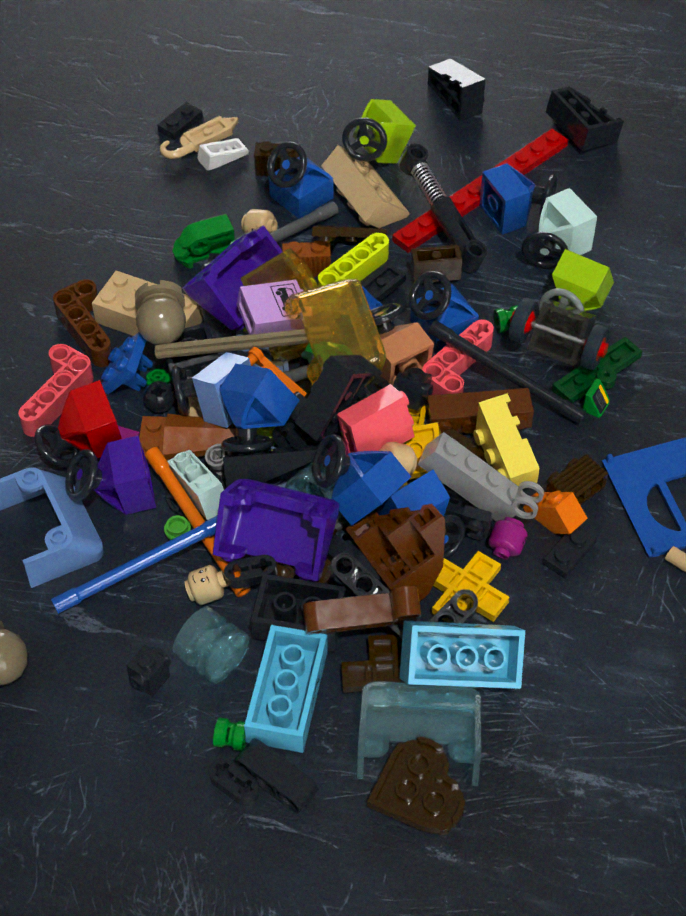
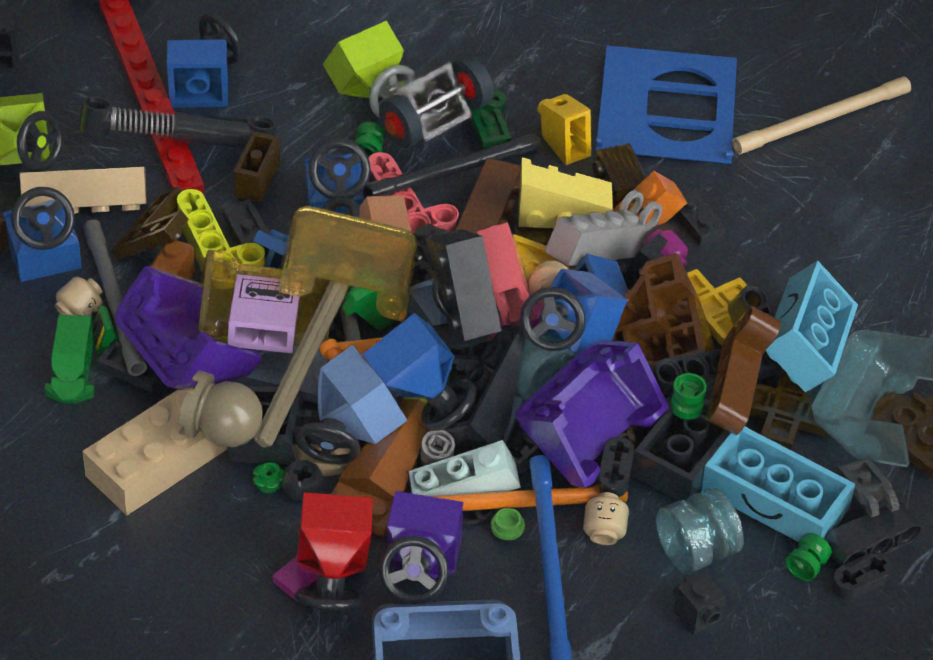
camera: 70 degrees left, 5 degrees down
(70, 372) = (217, 552): coral beam -> none
(73, 309) = (134, 522): reddish brown beam -> none
(124, 363) = (238, 492): blue plate -> none
(318, 753) = (869, 485): none -> dark grey hinge
(325, 584) = (688, 396): none -> green wheel
(563, 225) = (275, 46): light aqua piece -> none
(596, 399) = (516, 121): green slope -> none
(603, 417) = (566, 127): none -> yellow torso

